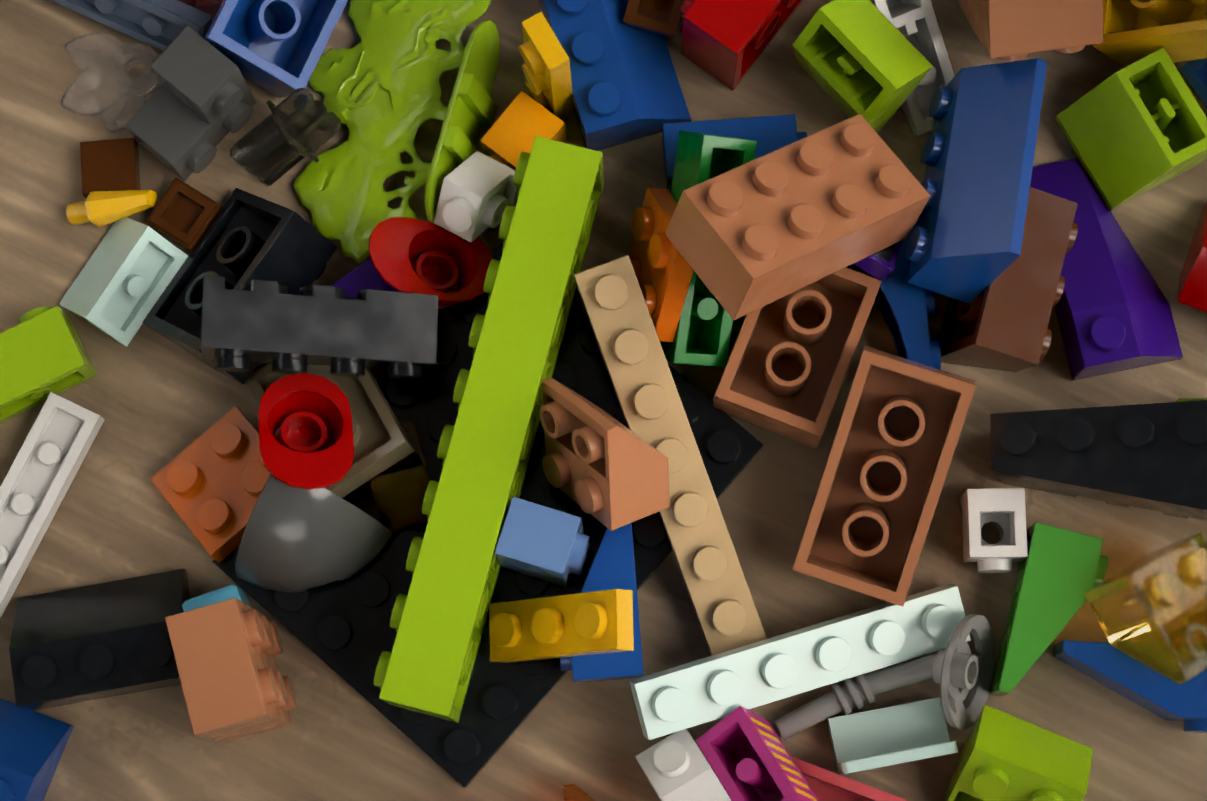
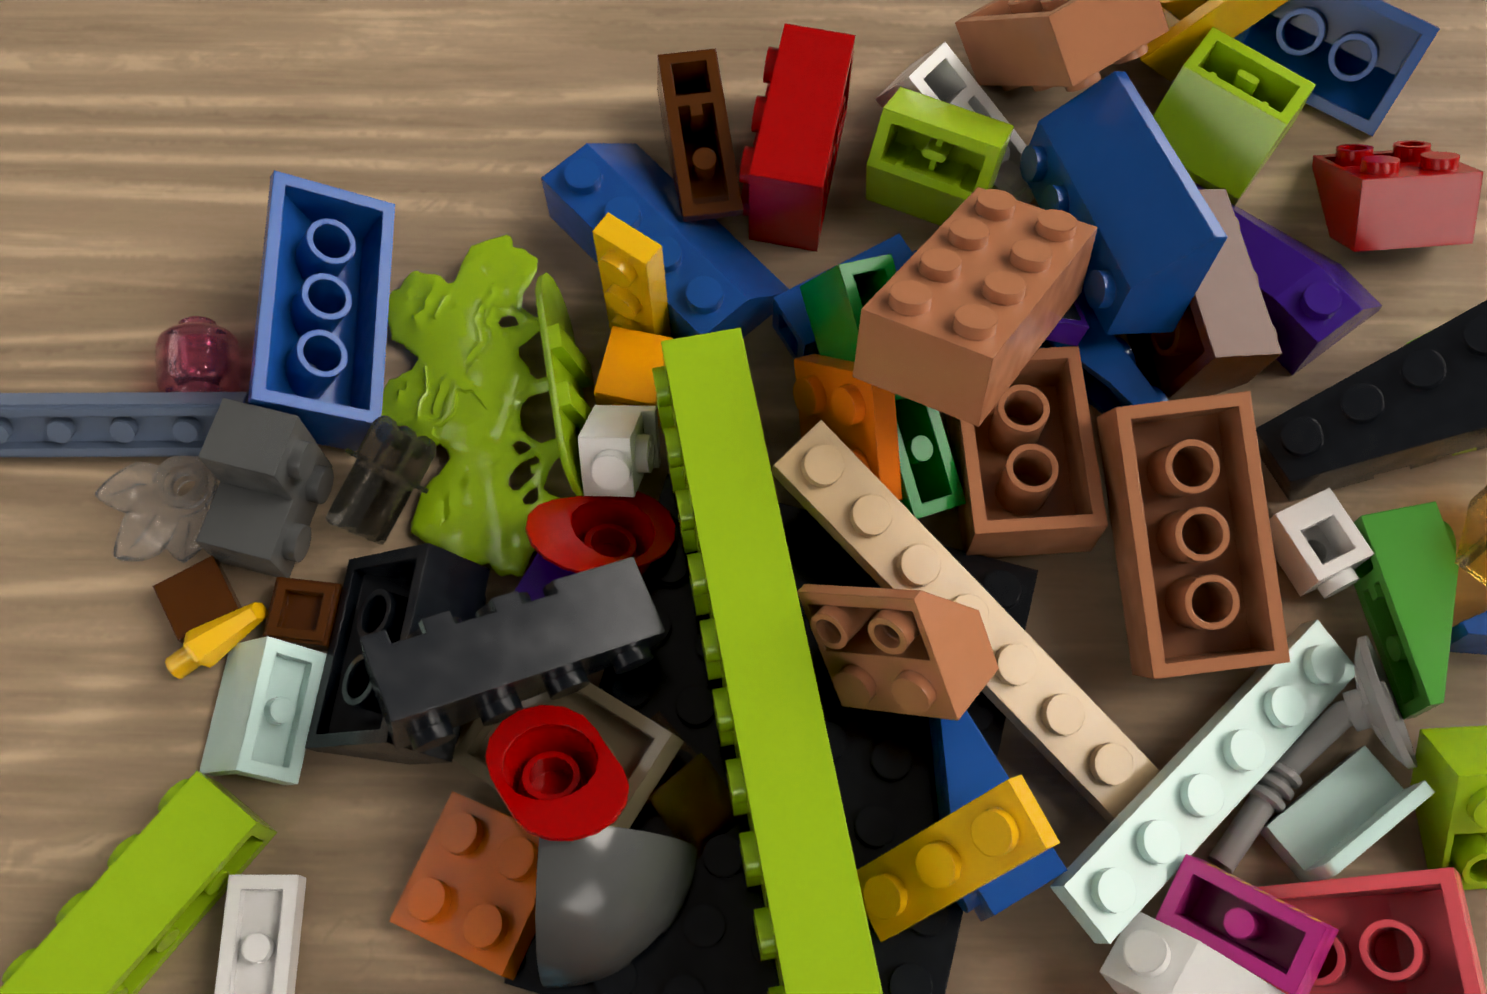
camera: 30 degrees left, 10 degrees down
(542, 542) = (885, 772): medium blue brick -> none

